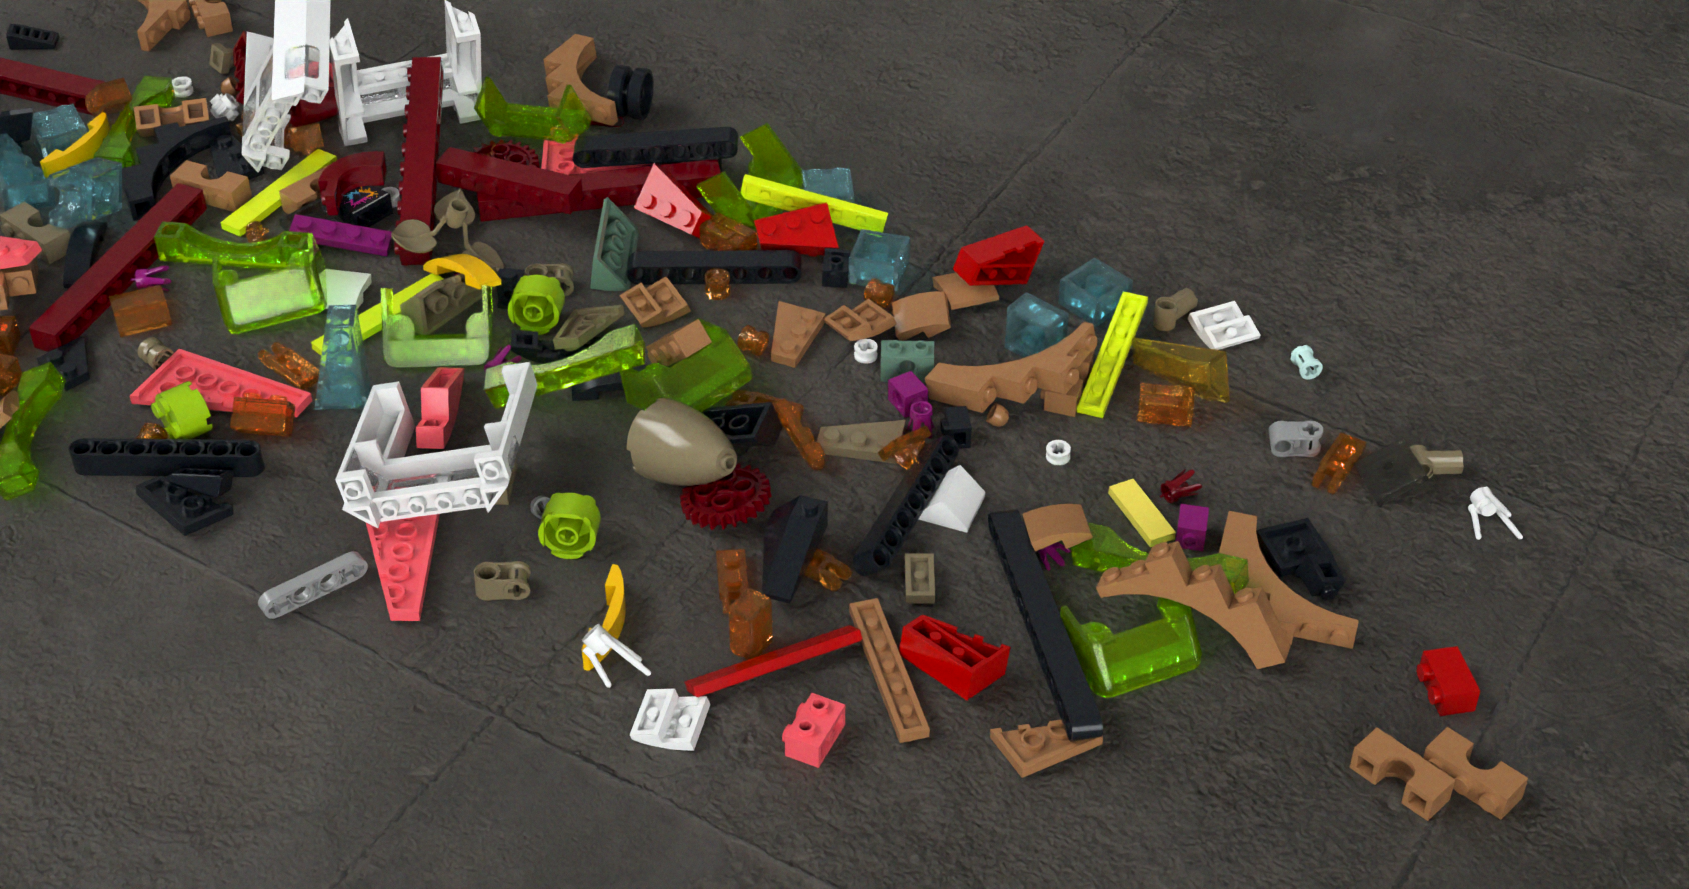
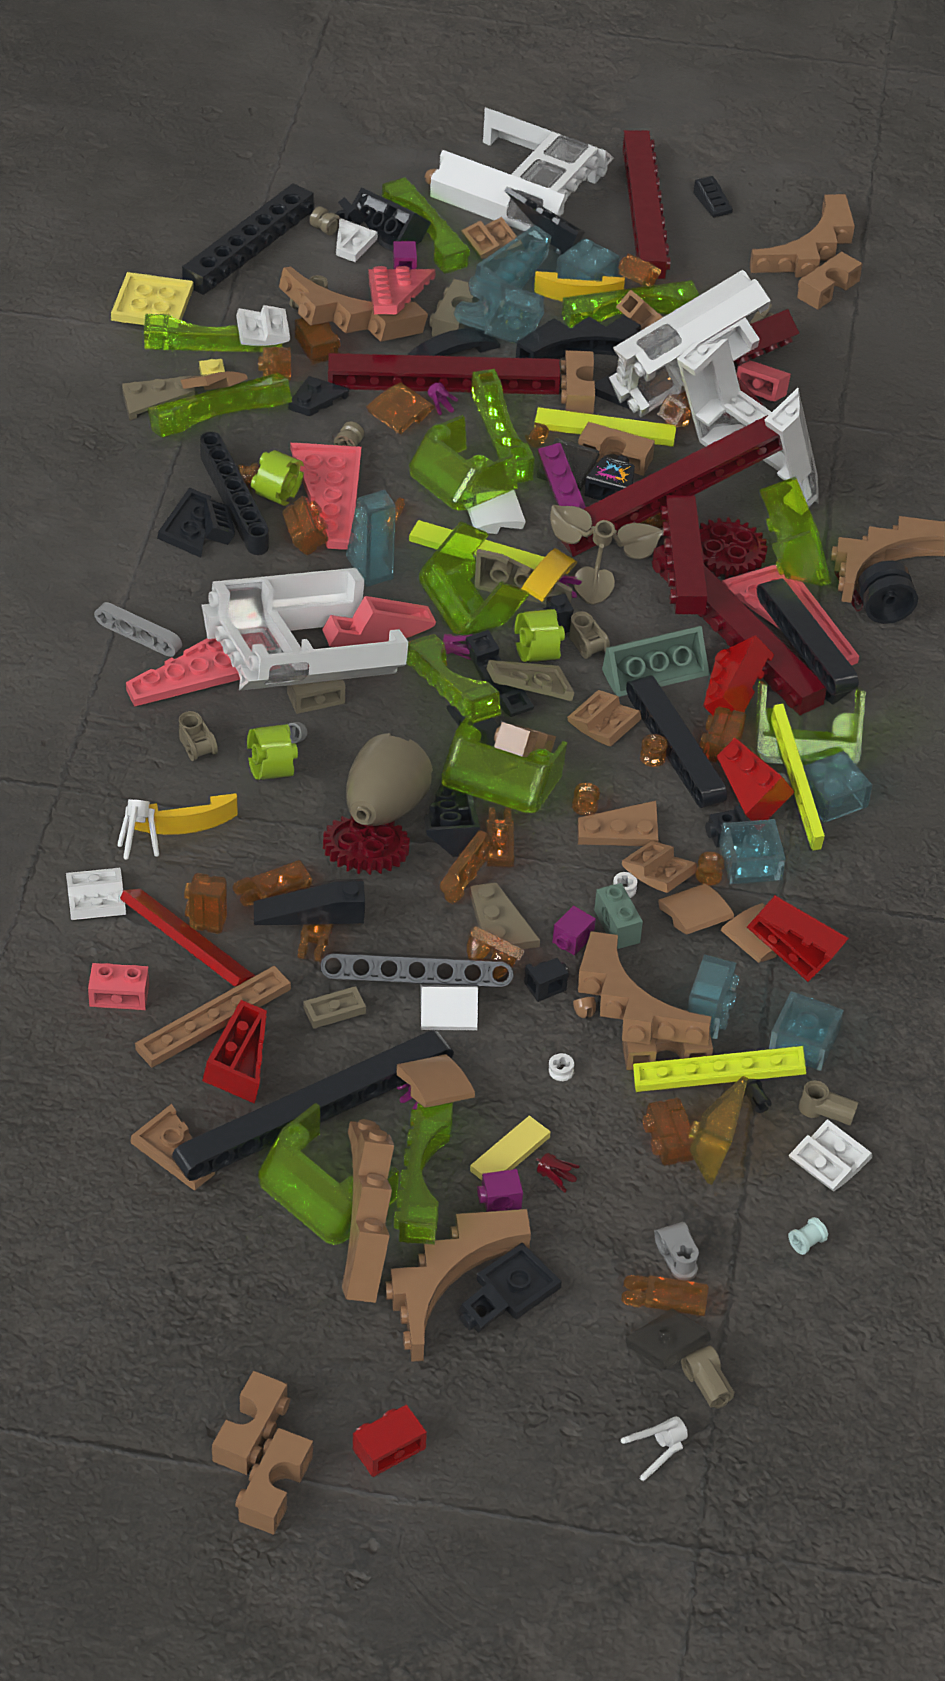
camera: 65 degrees right, 5 degrees up
(350, 173) = (619, 449): dark red arch -> none
(921, 412) = (541, 944): magenta piece -> none

